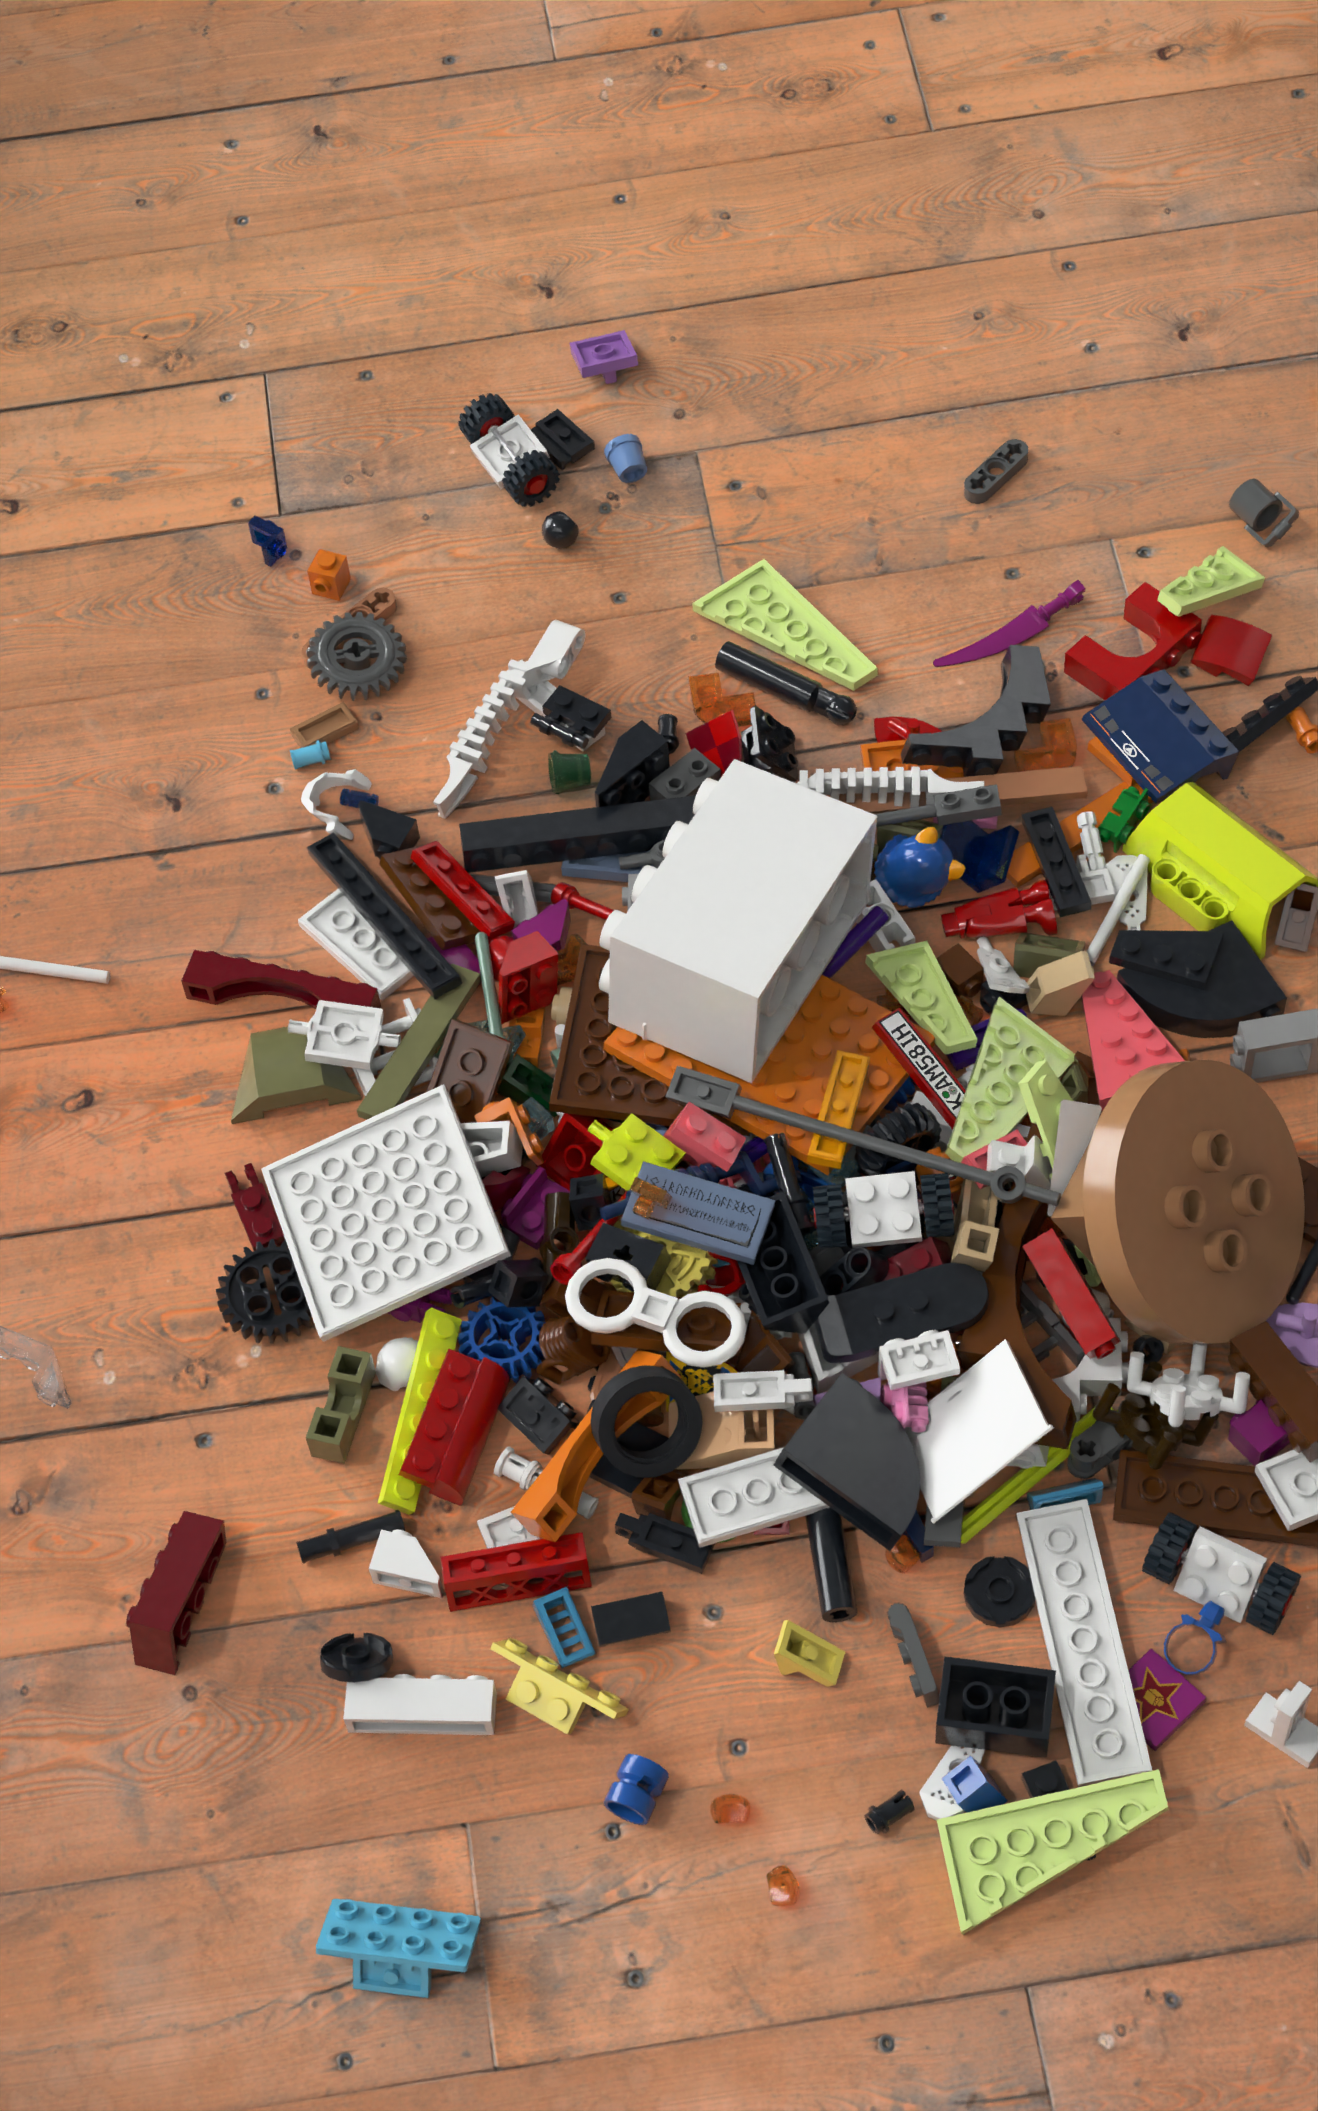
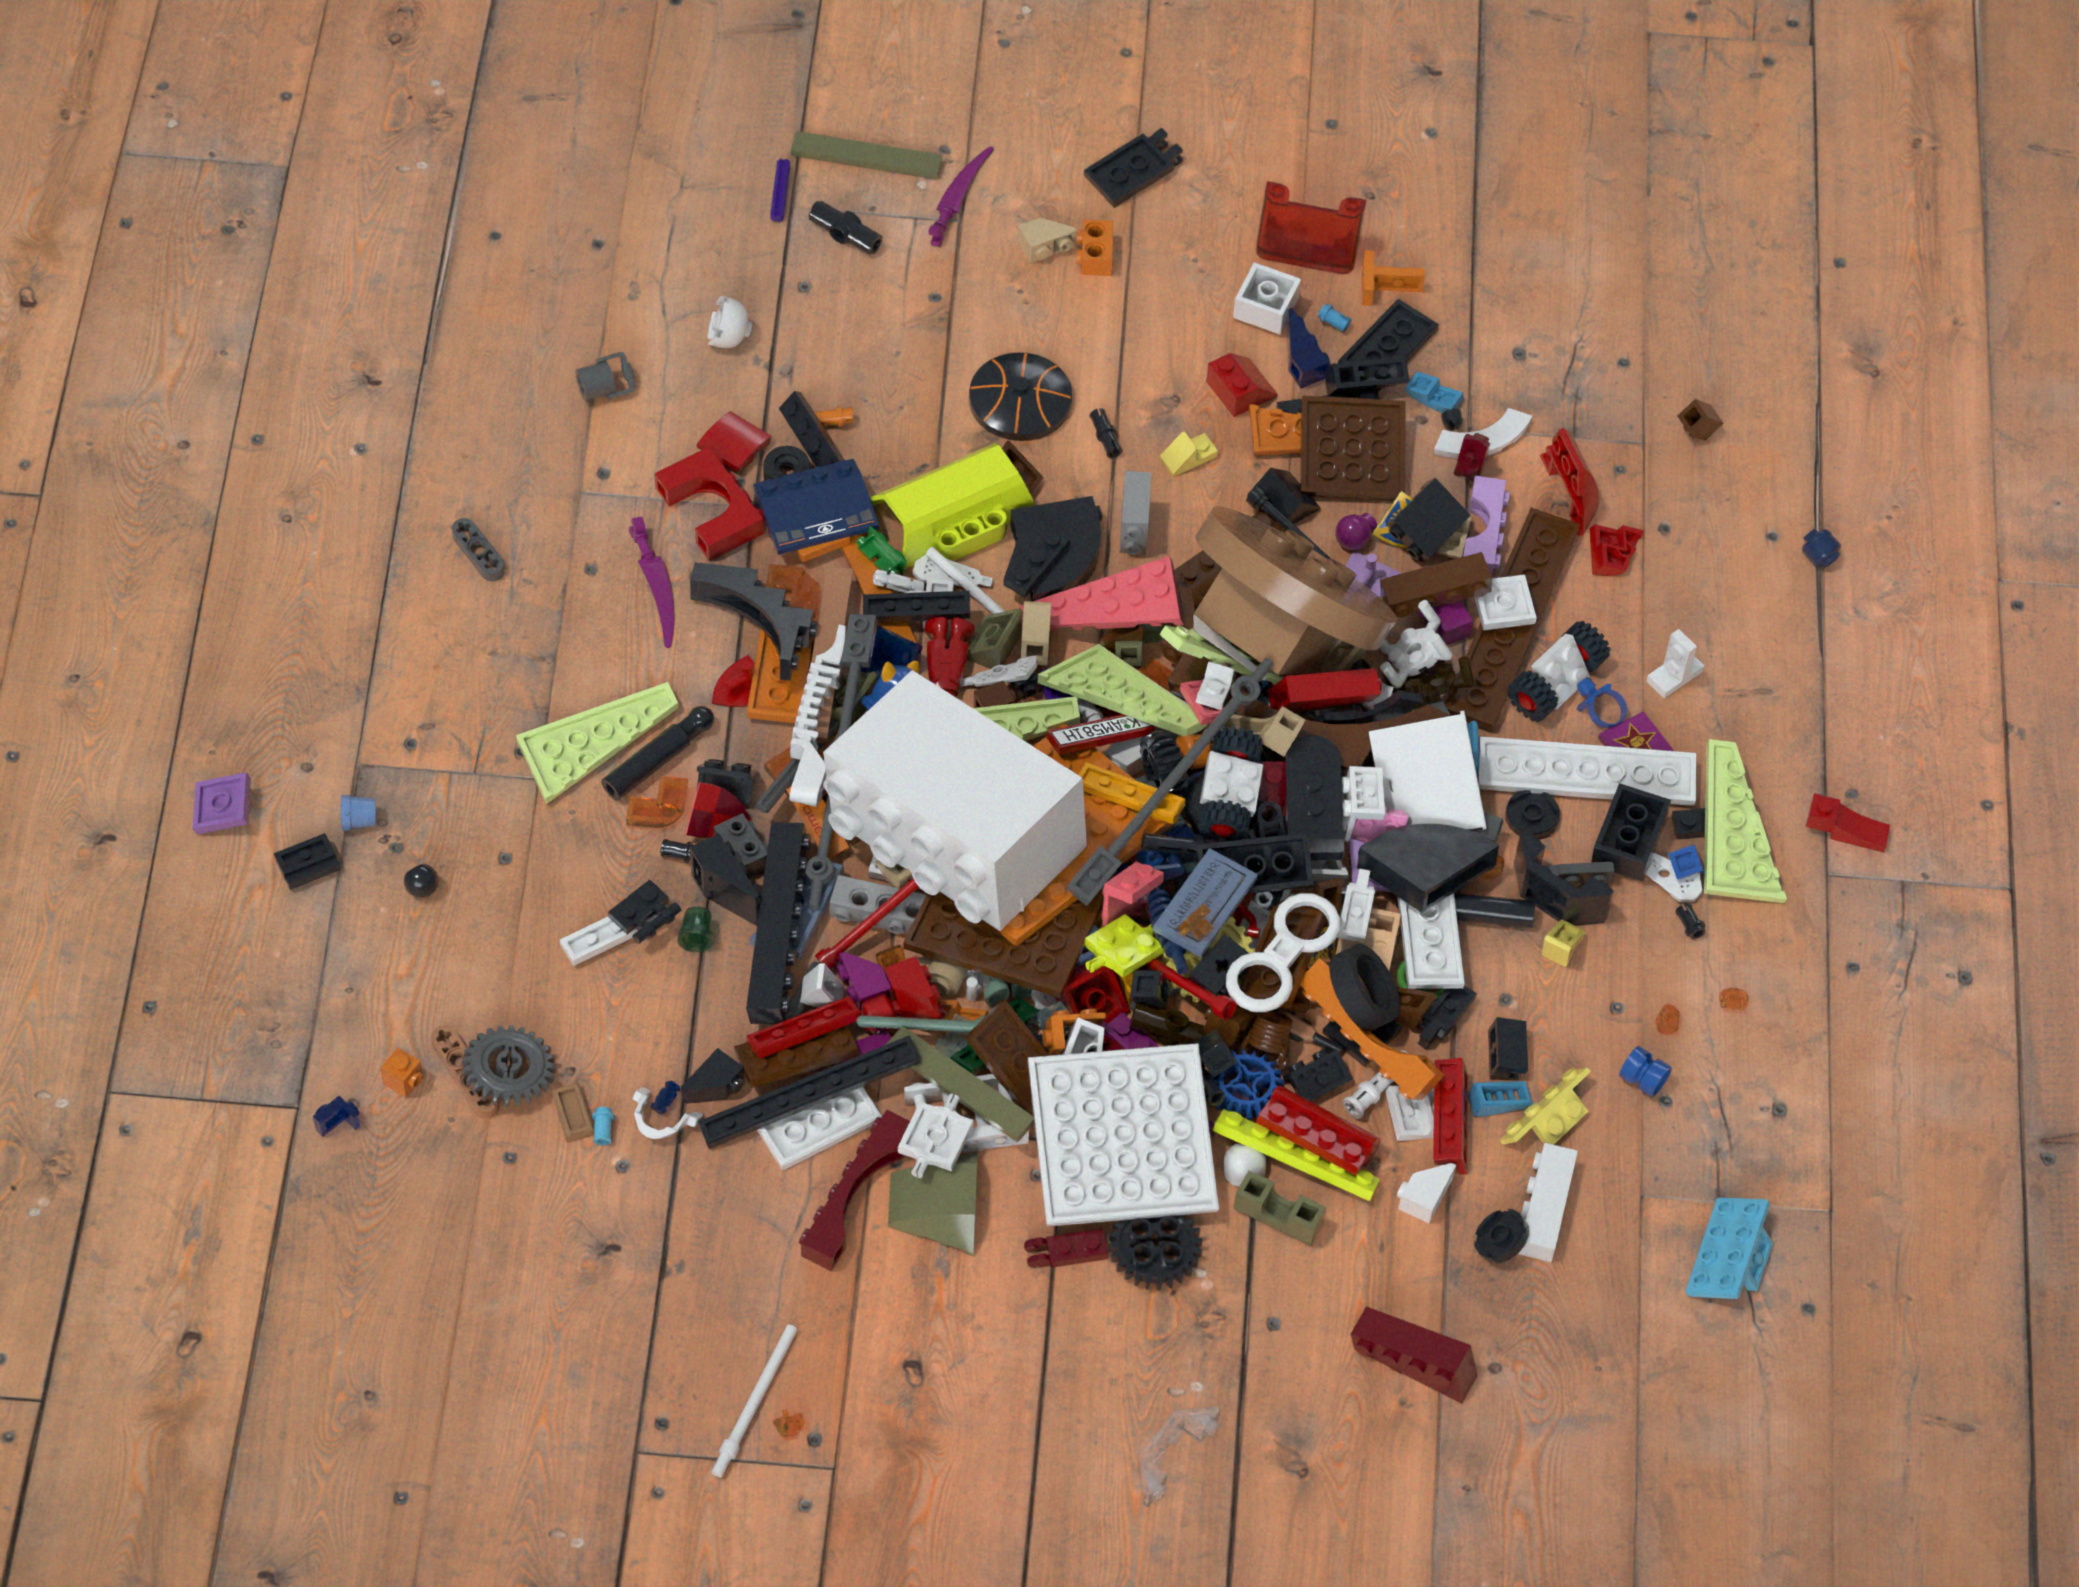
camera: 85 degrees left, 0 degrees up
(336, 1541) = (1393, 1237): black pin -> none
(508, 450) = (314, 898): plate -> none
(548, 661) = (580, 909): white piece -> none
(901, 1583) = (1557, 896): none -> black slope
(1064, 1366) = (1392, 707): none -> black tile
(1108, 1994) = (1845, 824): none -> red slope
(1210, 583) = (670, 431): yellowish green wing -> none
(1220, 691) = (782, 457): none -> black tyre

